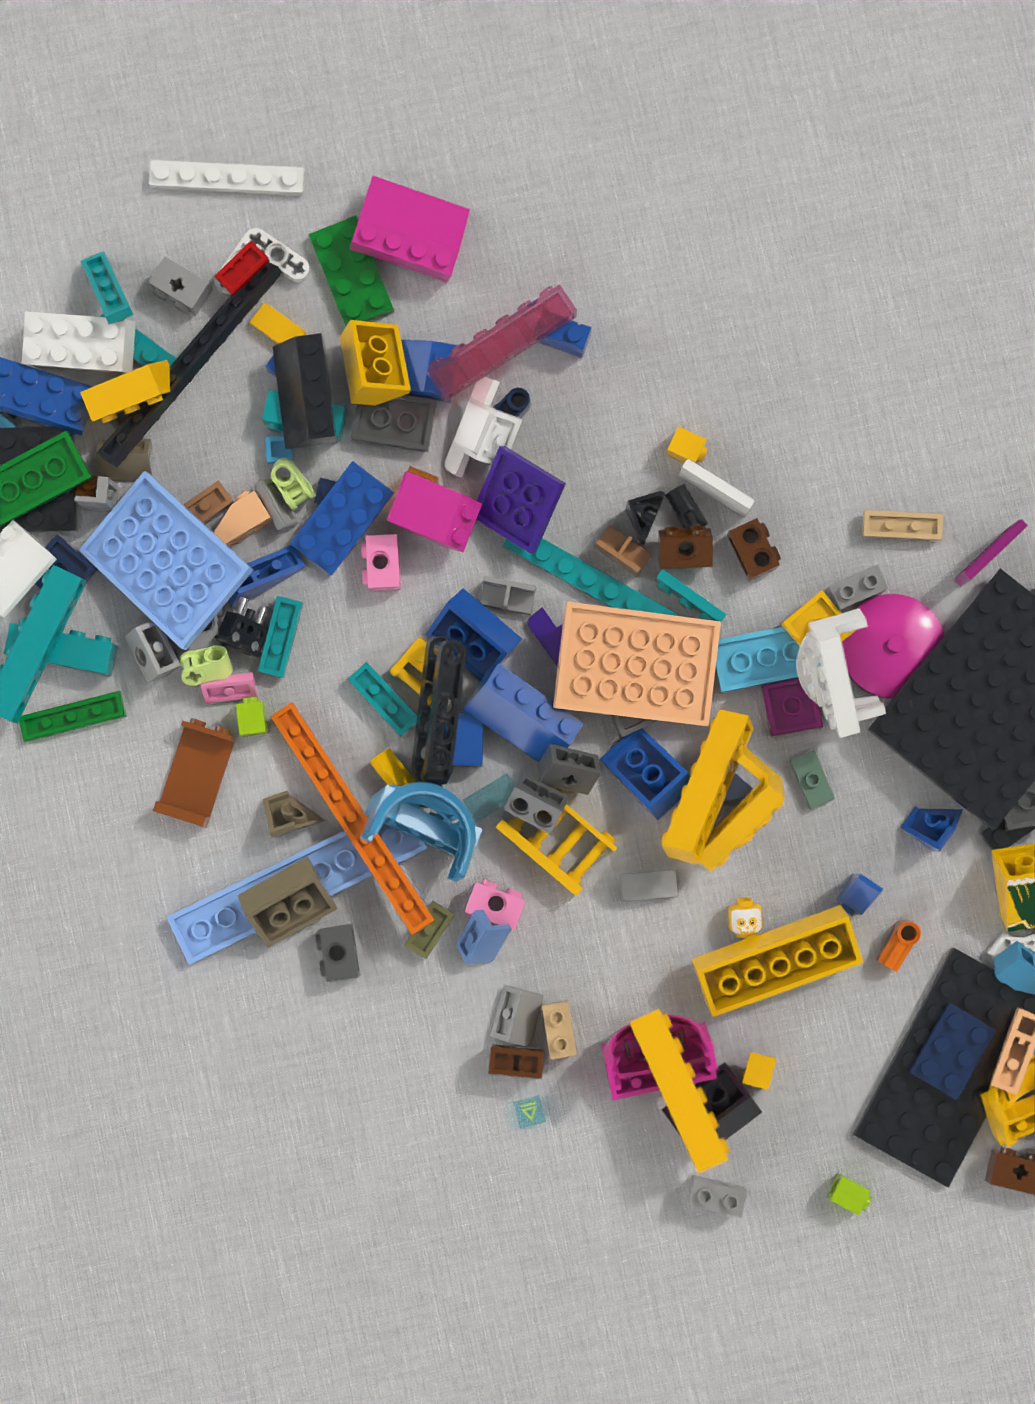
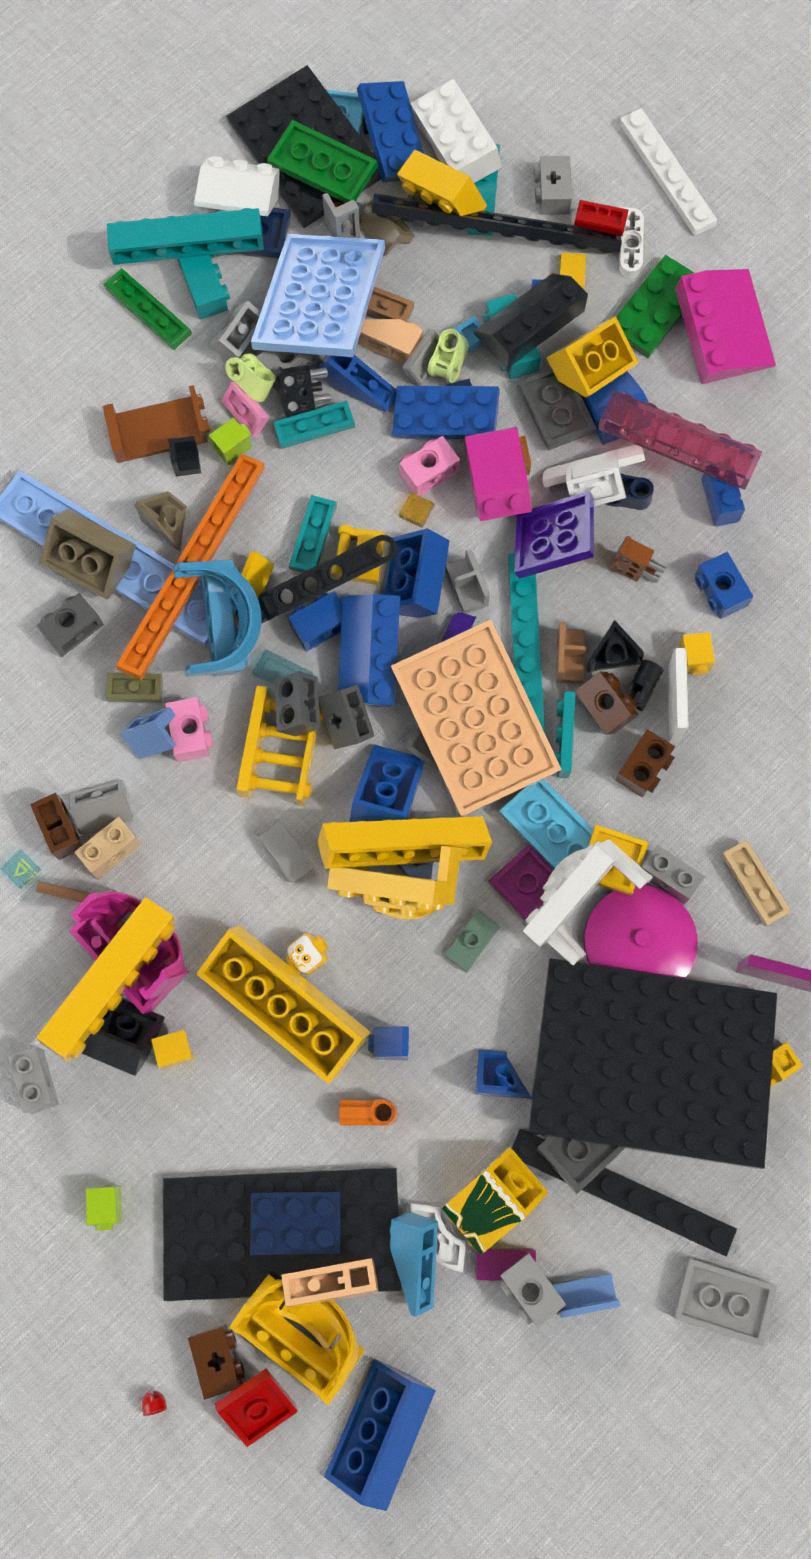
camera: 55 degrees right, 10 degrees down
(106, 288) = (513, 126): teal plate -> none
(242, 766) = (184, 456): none -> black panel
(413, 597) = (416, 510): none -> clear yellow tile
(578, 445) = (635, 561): none -> dark orange piece
(578, 1080) = (62, 892): none -> medium nougat bar
(654, 379) = (724, 571): none -> blue brick
(1019, 1238) = (153, 1403): none -> red hinge

